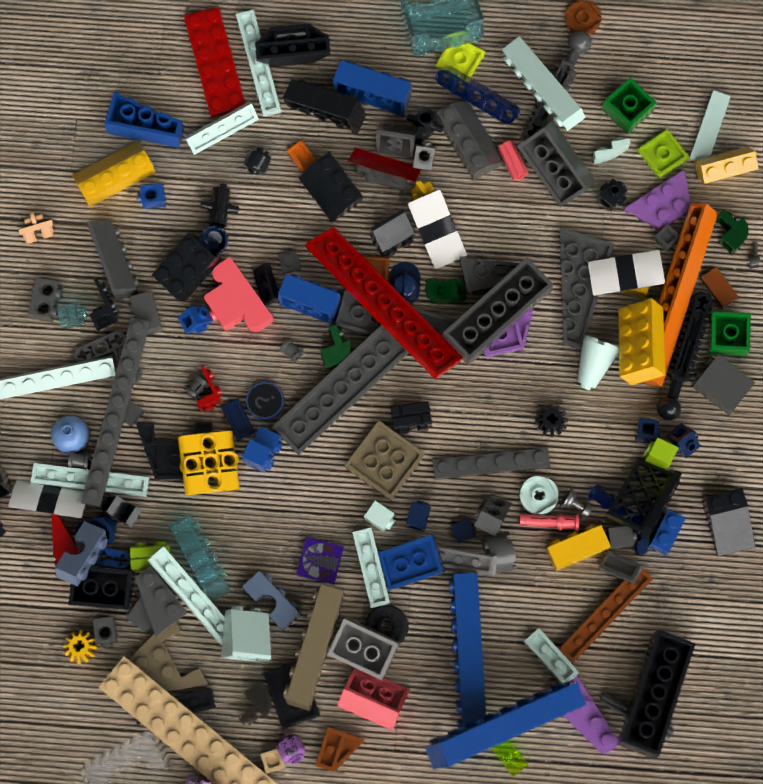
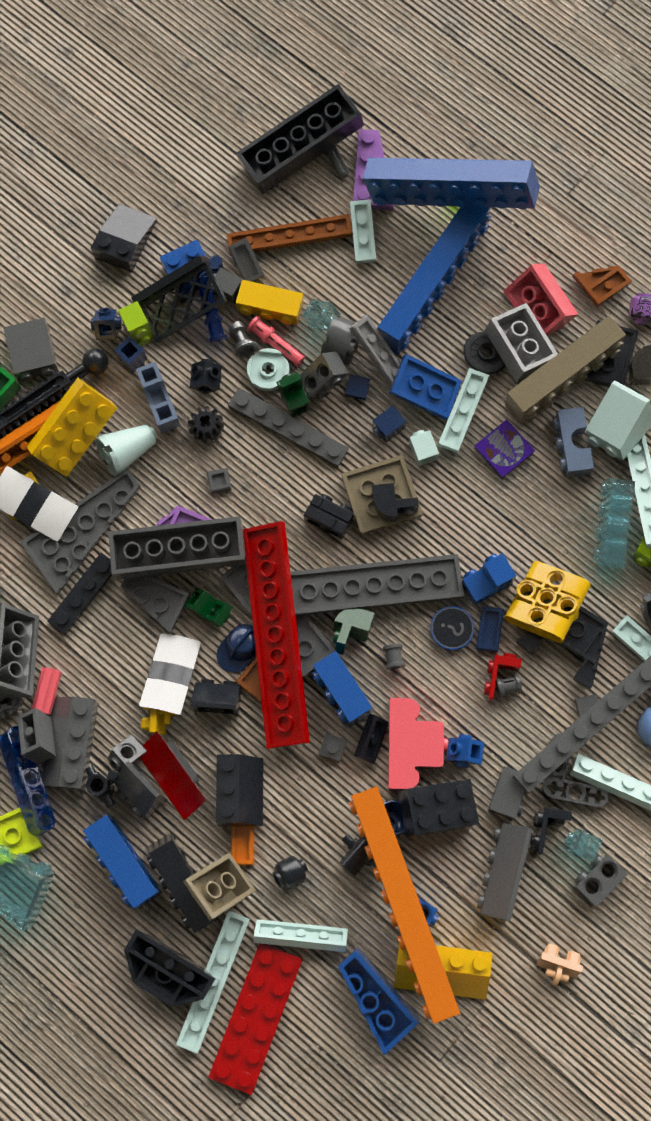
camera: 140 degrees left, 0 degrees up
(165, 185) = (405, 905): none -> orange brick
(296, 112) = (219, 886): none -> dark tan slope
(373, 449) = (387, 505): none -> black brick
(493, 124) = (36, 736): none -> dark grey brick
(505, 487) = (293, 394): none -> dark green brick
(510, 388) = (219, 481): none -> dark grey tile
(531, 563) = (320, 314): none -> clear light blue brick
(542, 239) = (82, 594): none -> black plate
(579, 454) = (205, 376): none -> black brick
(609, 419) = (158, 397): none -> sand blue arch

